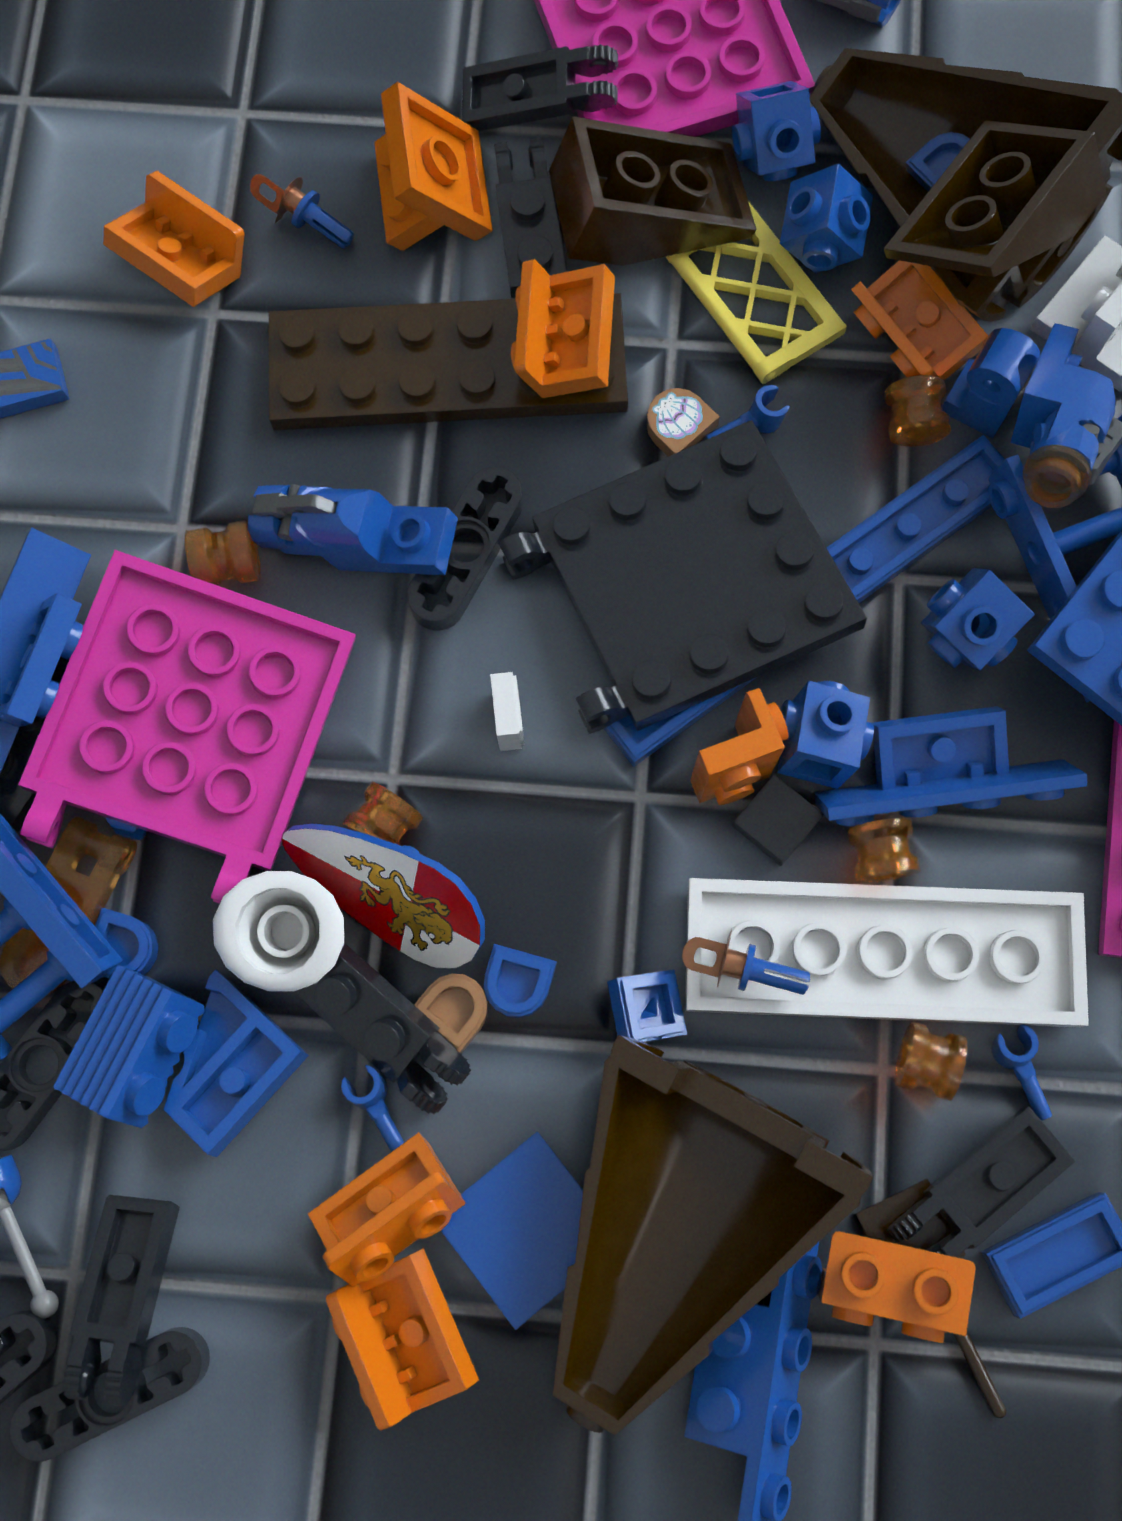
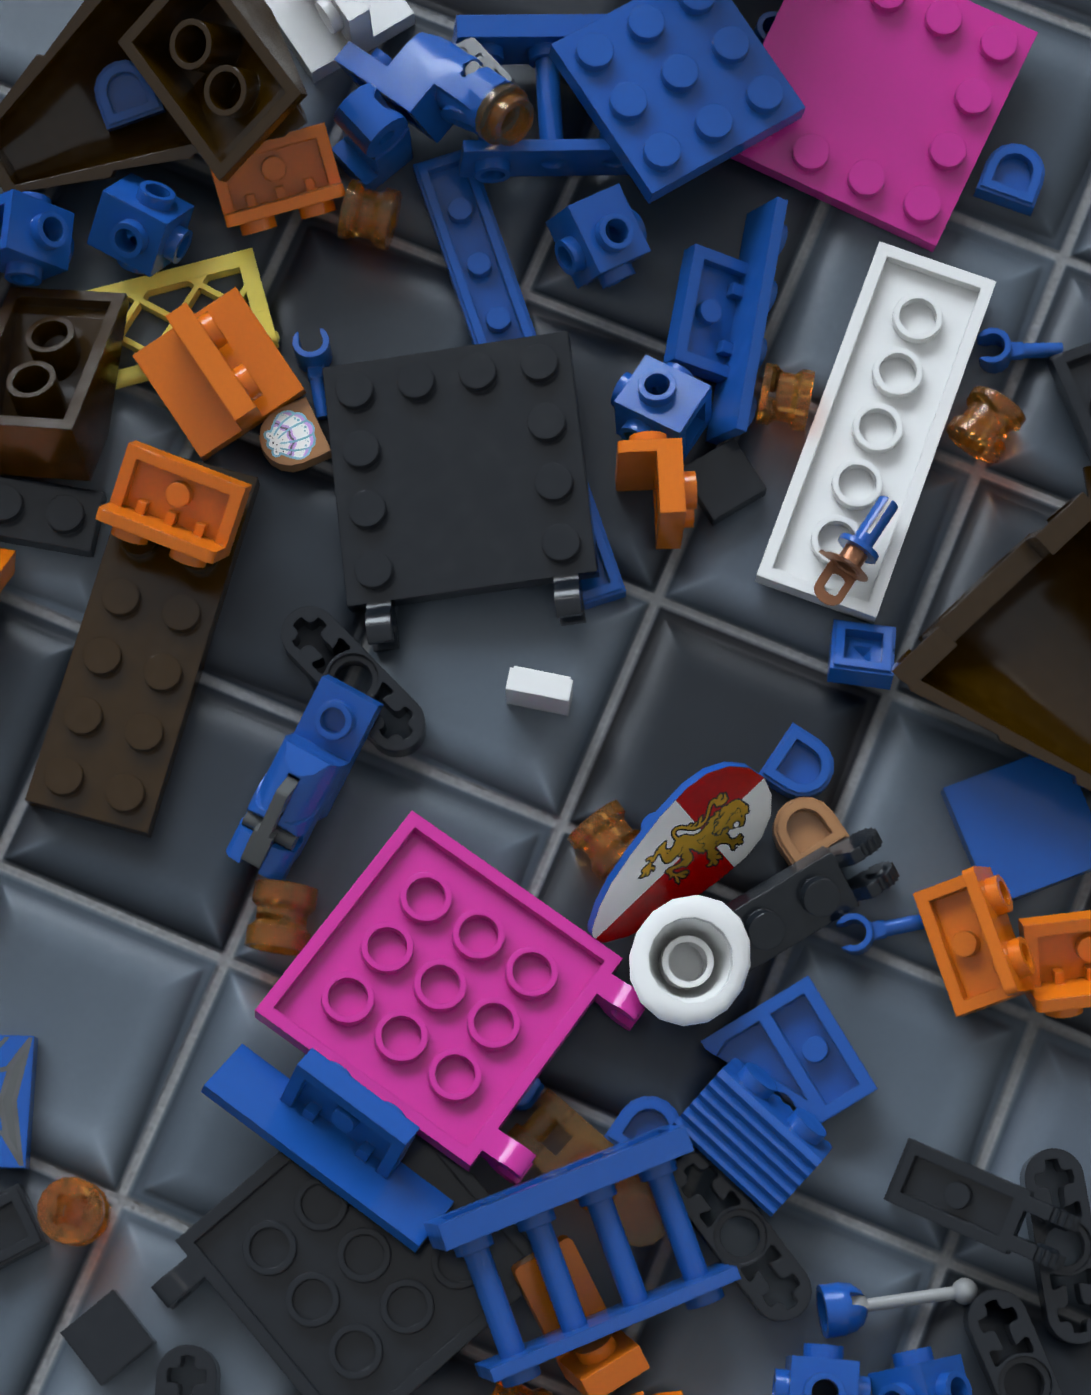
camera: 75 degrees left, 0 degrees up
(715, 332) = (218, 372): none -> orange bracket

